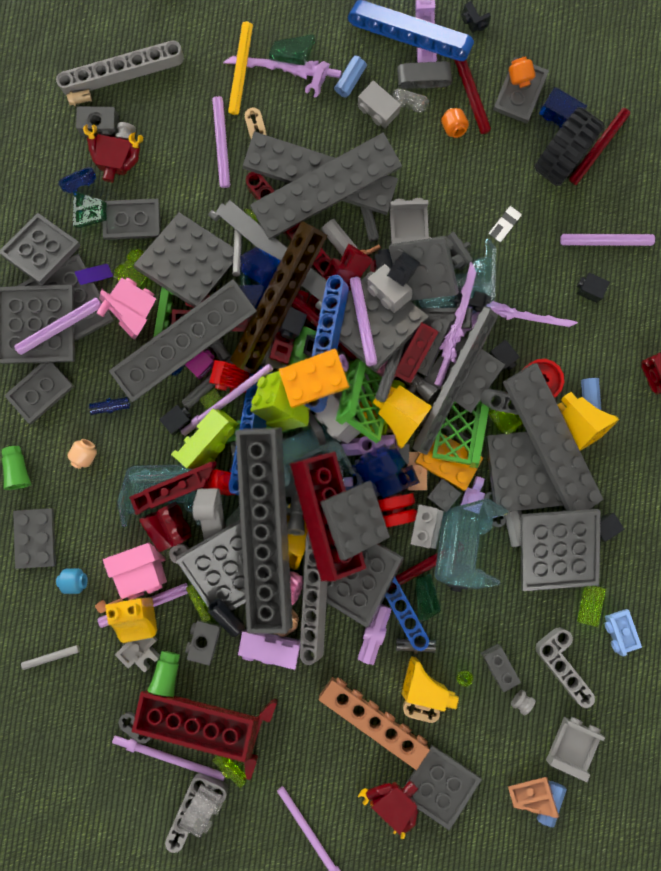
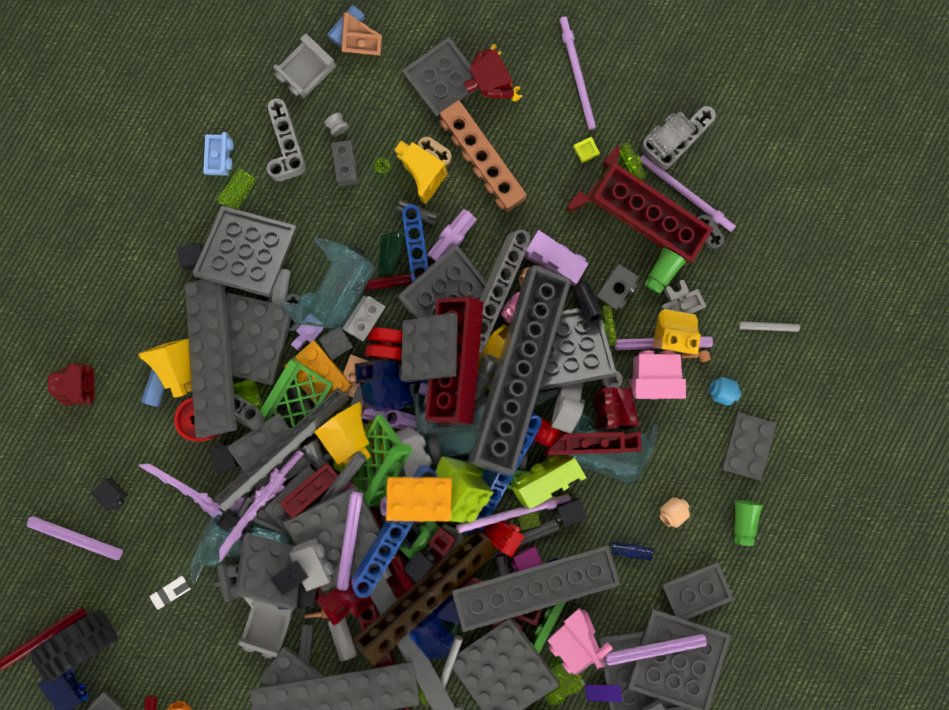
camera: 165 degrees left, 0 degrees up
(278, 765) = (586, 150): none -> neon yellow tile

